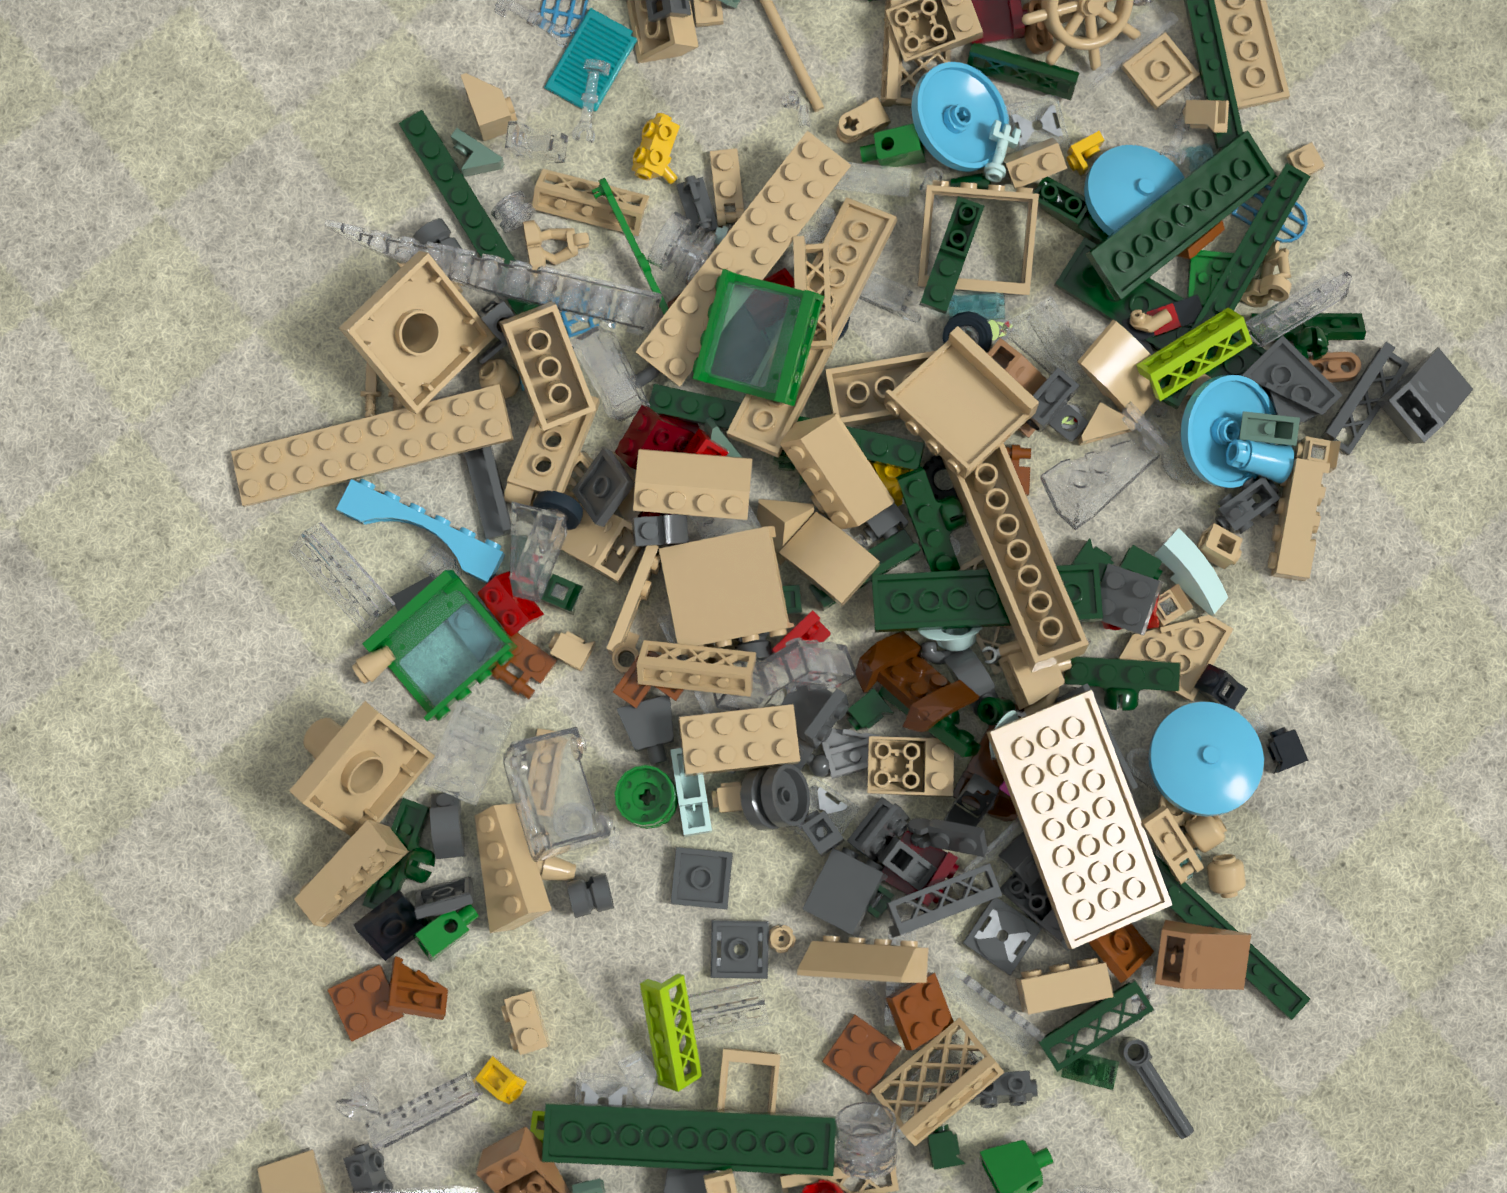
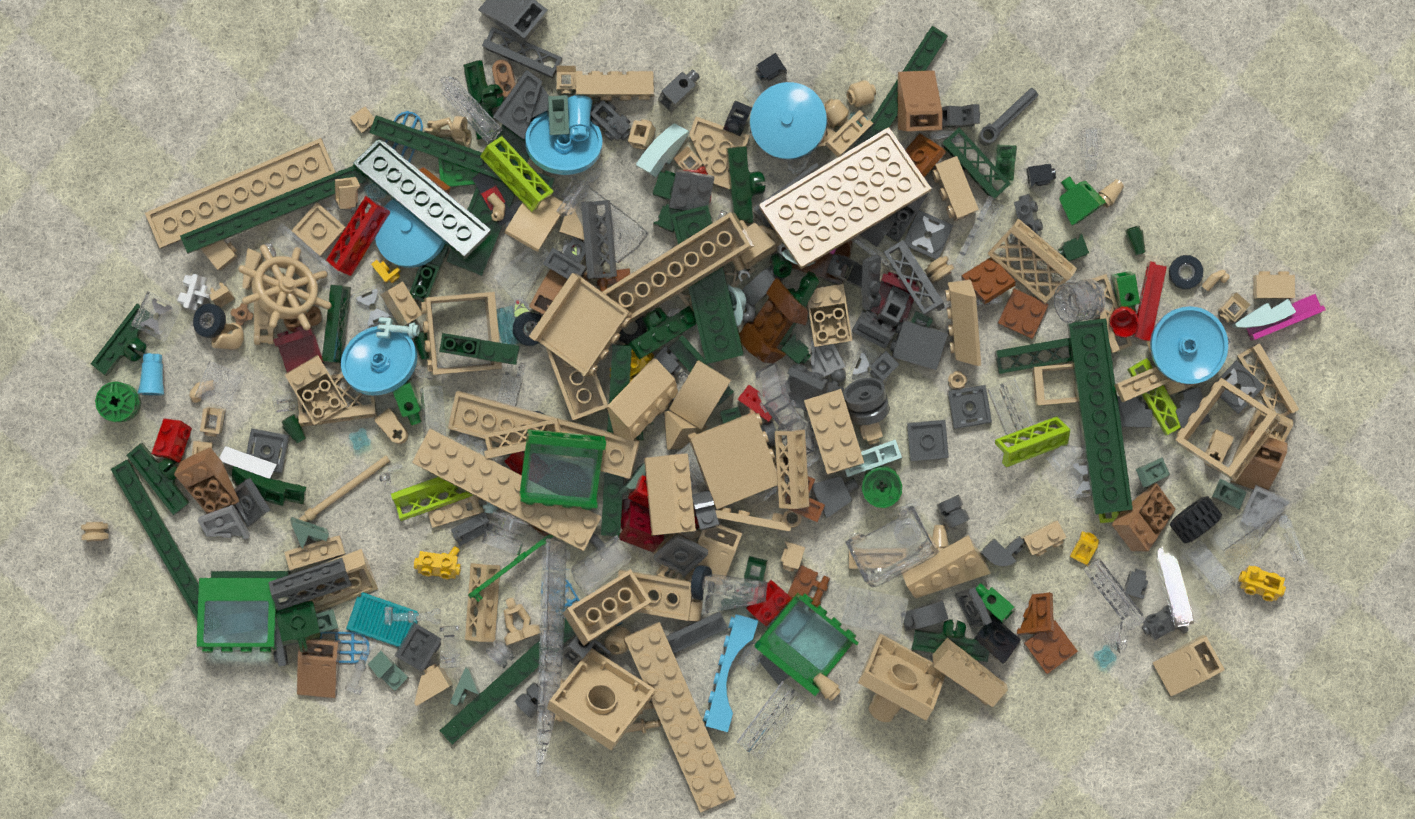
camera: 90 degrees left, 5 degrees up
(328, 1079) = (1110, 656): none -> clear light blue plate
(433, 1147) = (1136, 583): none -> dark grey brick
(511, 953) = (1001, 556): none -> dark grey brick
(520, 55) = (387, 670): none -> sand green slope
(545, 99) = (418, 647): none -> dark grey bracket
(763, 143) = (426, 490): none -> lime fence
(808, 1052) = (1028, 349): none -> dark green fence
(850, 81) = (358, 444): none -> clear light blue plate
(949, 941) = (939, 269): none -> tan wheel
(1062, 1119) = (1040, 175): none -> black window
(1079, 449) = (592, 239): none -> dark grey fence
(1138, 123) = (360, 238): none -> red fence
(1169, 1015) = (960, 116): none -> dark grey brick
(1275, 610) = (674, 94): none -> dark grey torso

